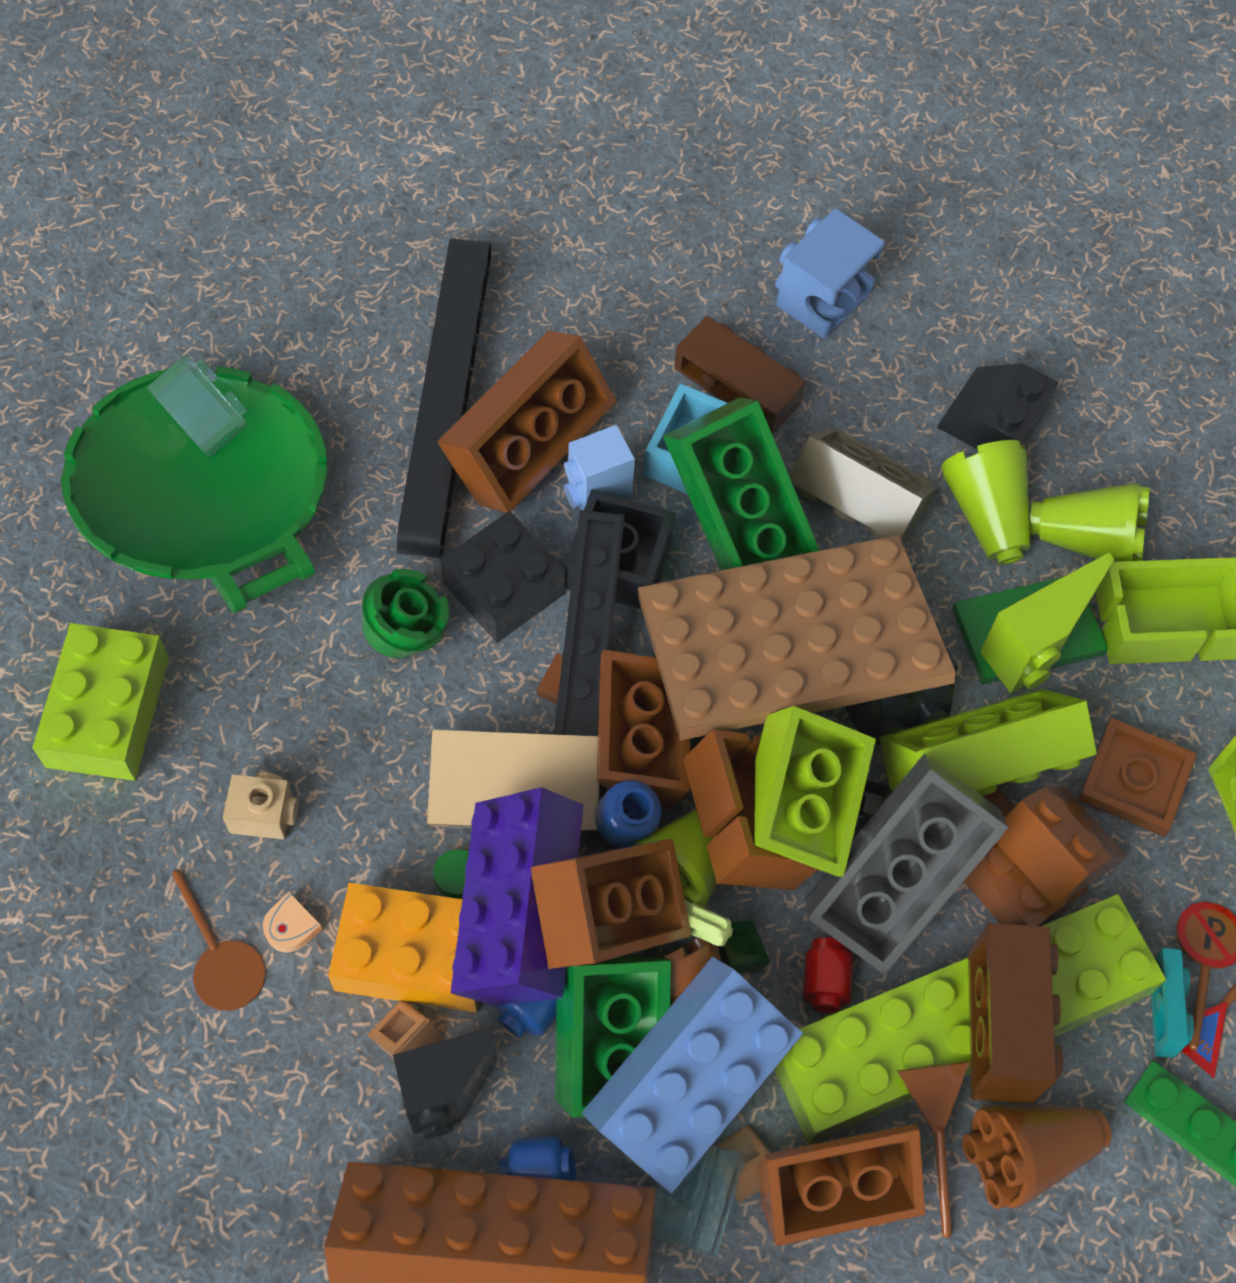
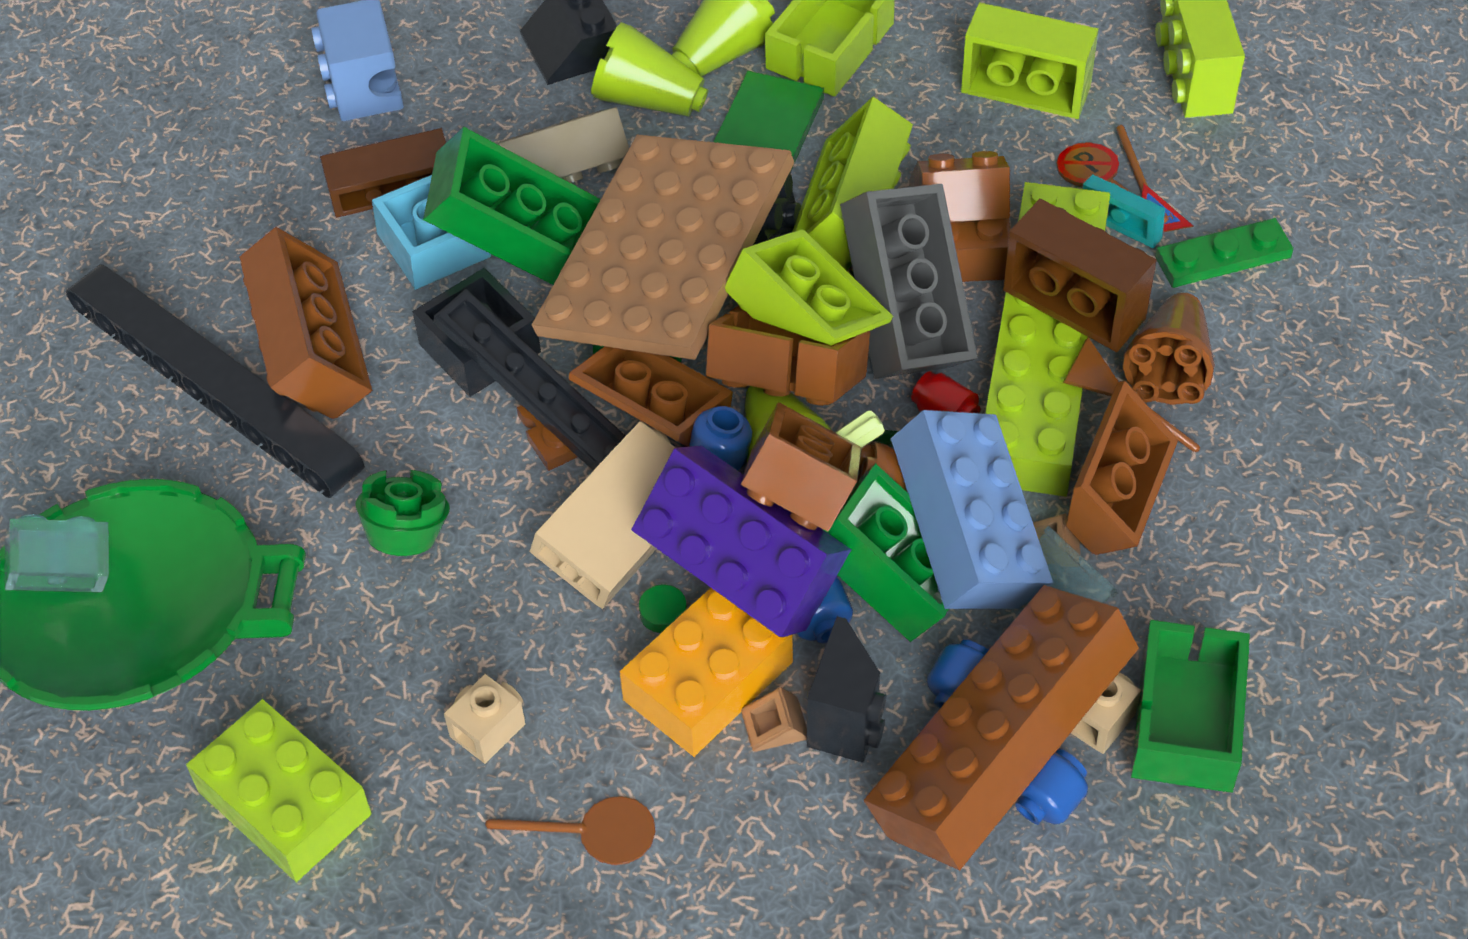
camera: 50 degrees left, 10 degrees down
(289, 925) = (610, 757): light nougat tile -> none
(503, 576) = (426, 425): black brick -> none
(599, 464) = (391, 294): light blue brick -> none
(1034, 630) = (788, 97): lime slope -> none
(1137, 777) = (944, 126): dark orange plate -> none

